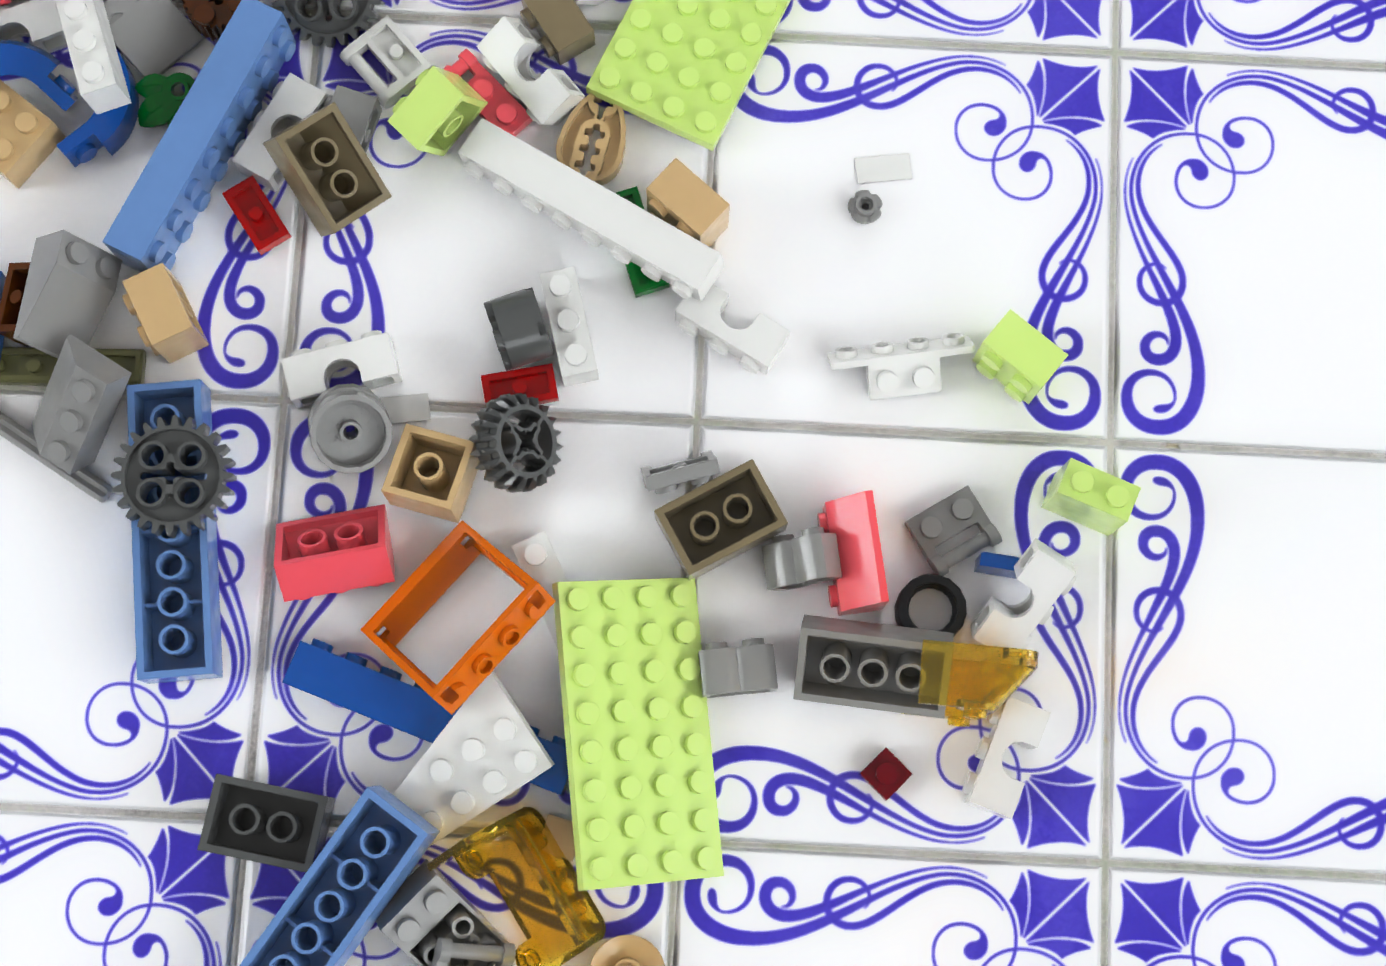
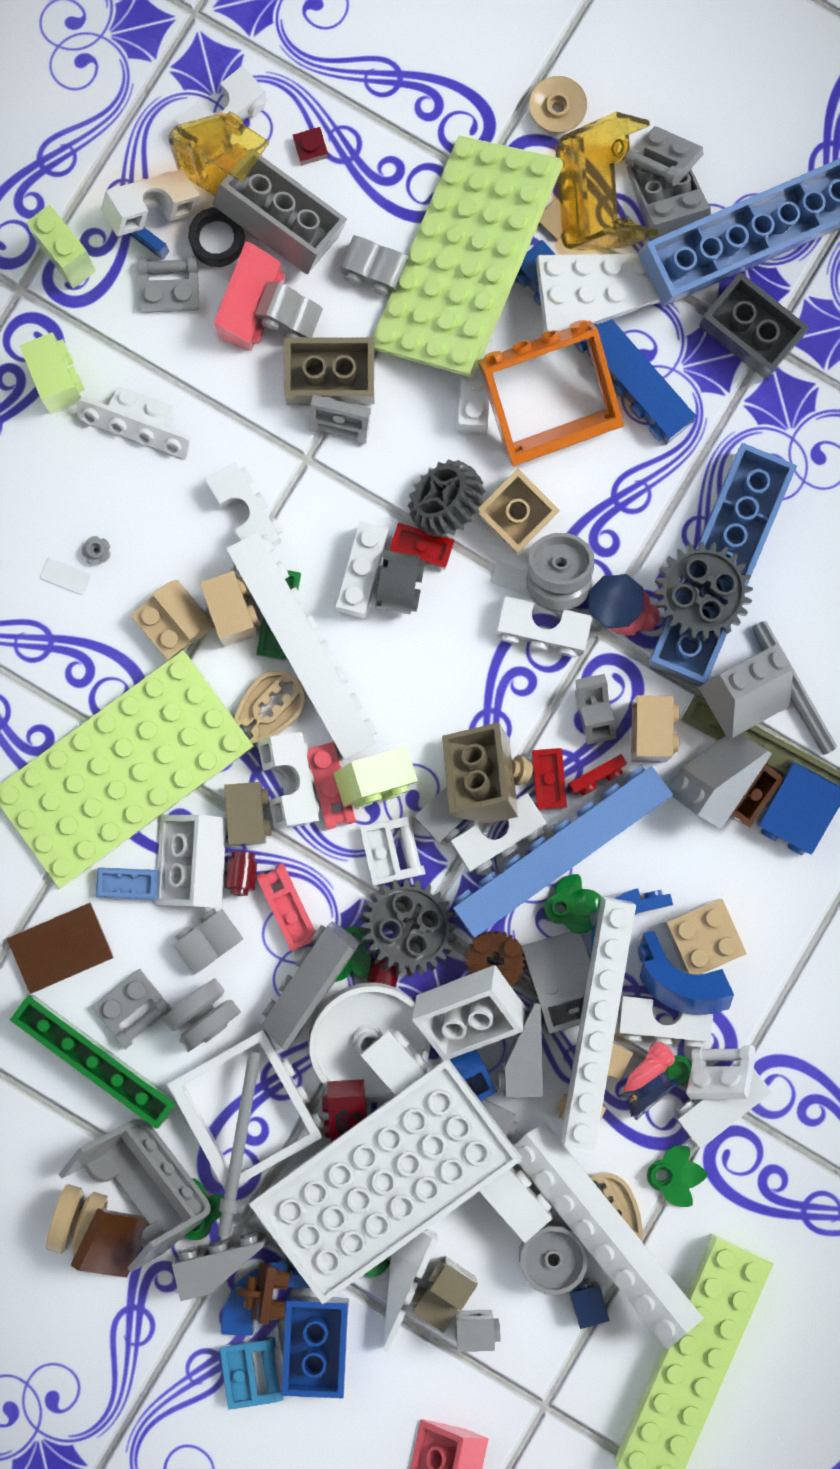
camera: 150 degrees left, 5 degrees up
(212, 234) = (586, 782): none -> red plate
(240, 306) = (595, 709): none -> light grey brick
(265, 430) = (622, 605): none -> dark blue piece
(290, 208) = (522, 770): none -> tan plate
(334, 553) = (615, 495): coral slope -> none
(745, 173) = (172, 619): none -> tan brick

